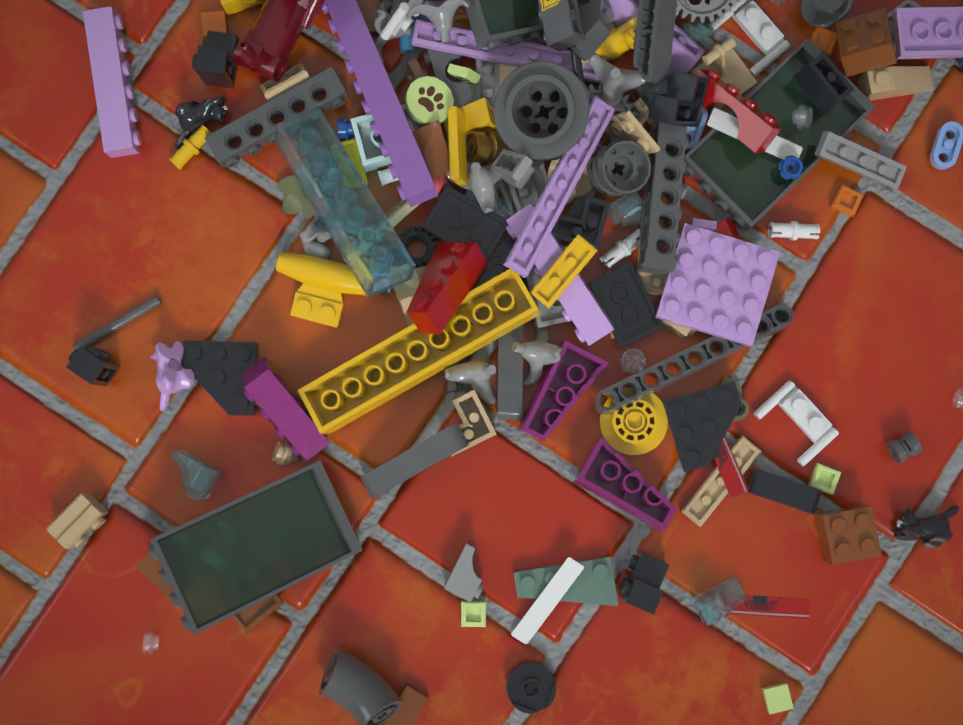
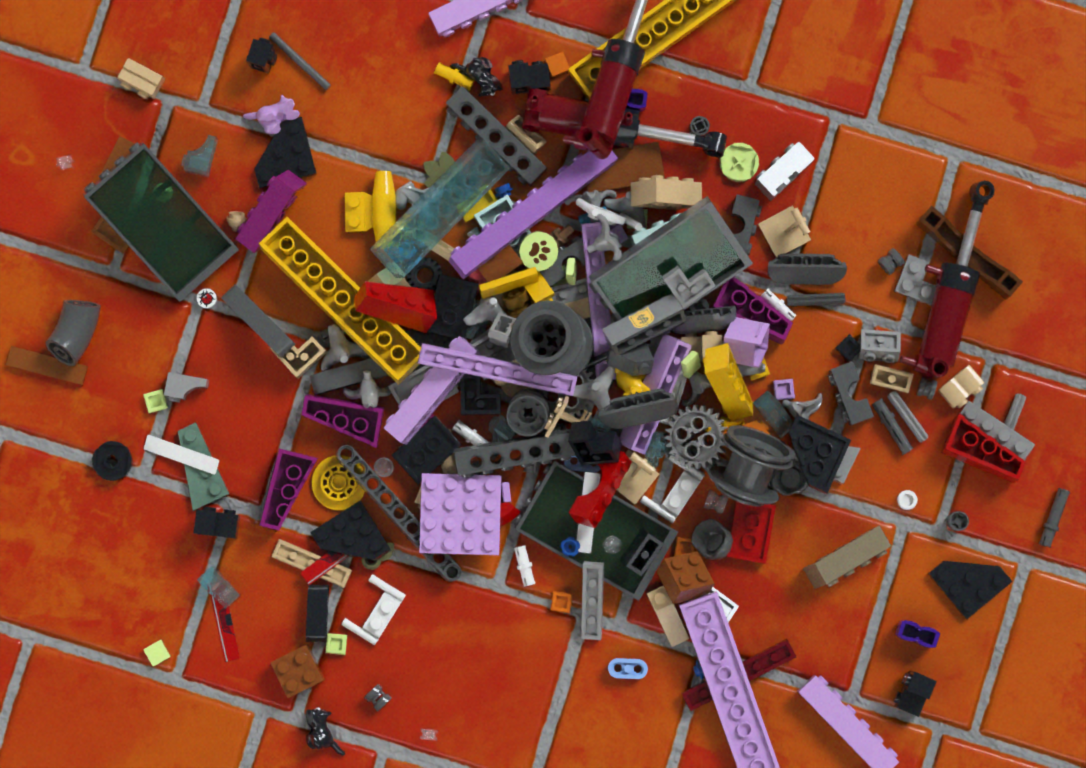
camera: 75 degrees right, 0 degrees up
(367, 516) = (206, 298): none -> tile
(563, 271) = (432, 391): yellow tile -> none

